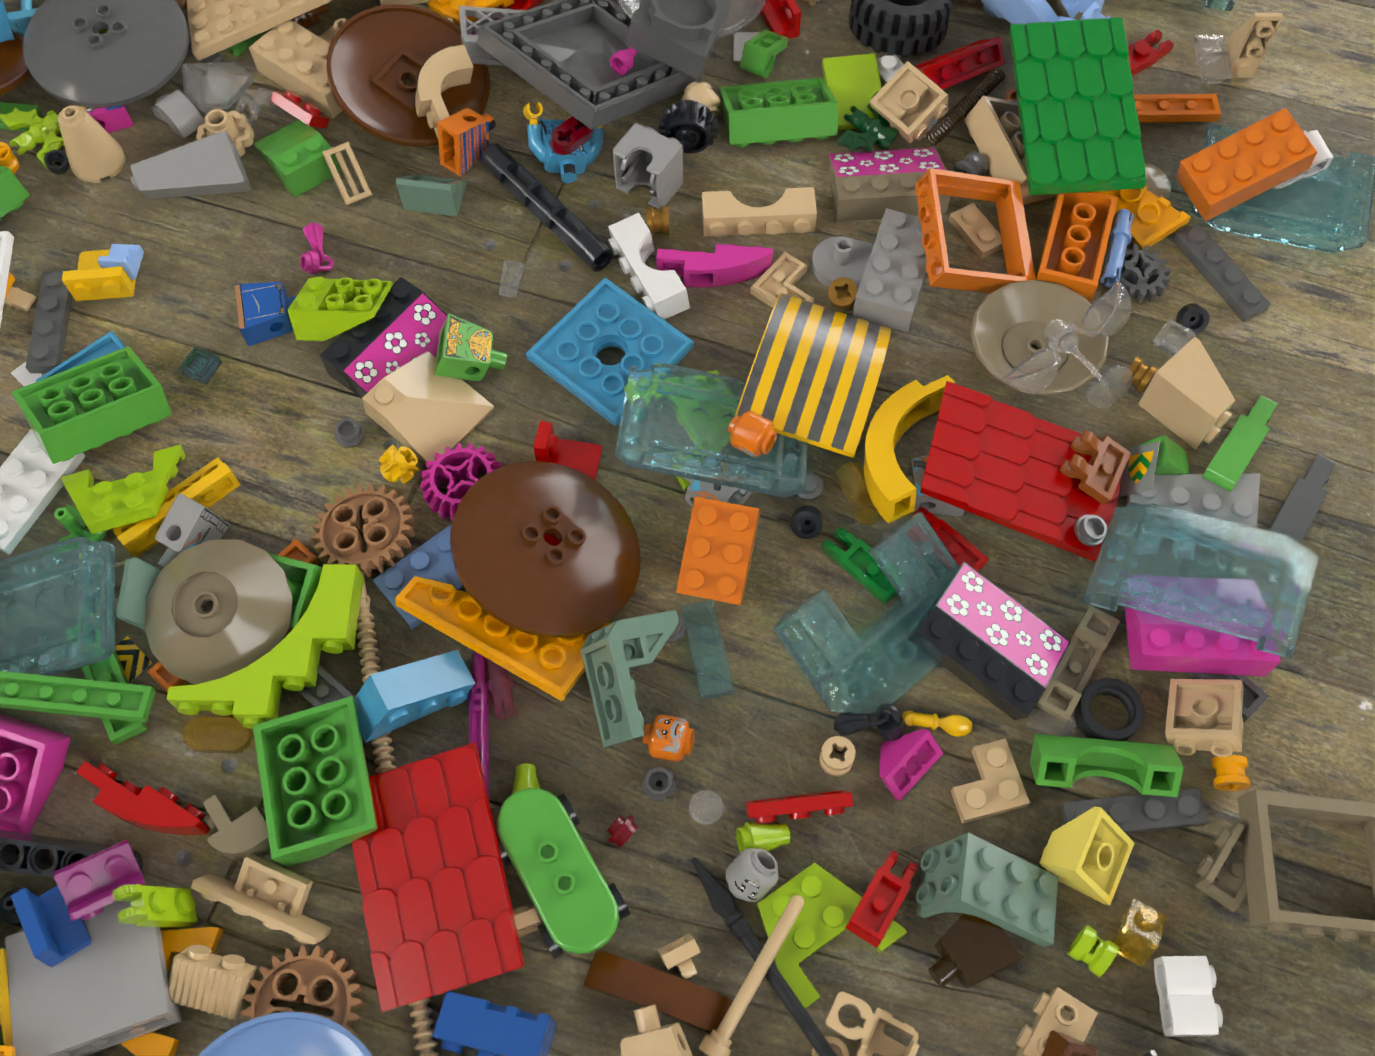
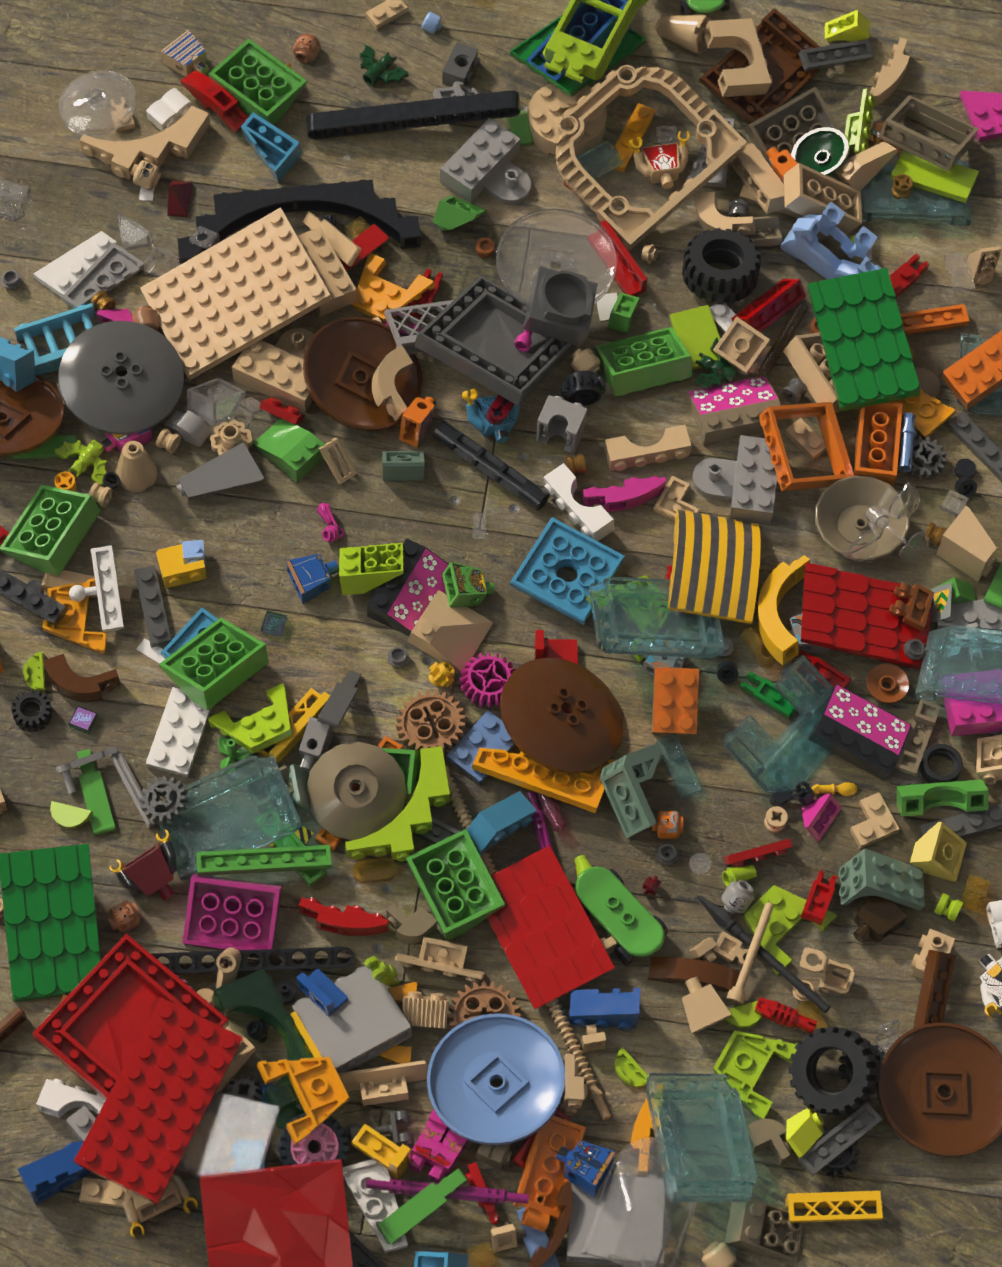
camera: 15 degrees left, 0 degrees up
(36, 176) = (100, 494): none -> tan wheel
(90, 881) = (343, 962): magenta bracket -> none
(146, 125) = (168, 440): none -> tan wheel
(237, 478) = (340, 700): none -> dark grey piece
(722, 959) = (729, 948): none -> tan plate
(752, 434) = (682, 618): orange head -> none
(840, 298) = (717, 503): pearl gold wheel -> none
(1044, 562) = (887, 675): none -> dark orange dish
(1194, 293) = (965, 467): none -> black tile

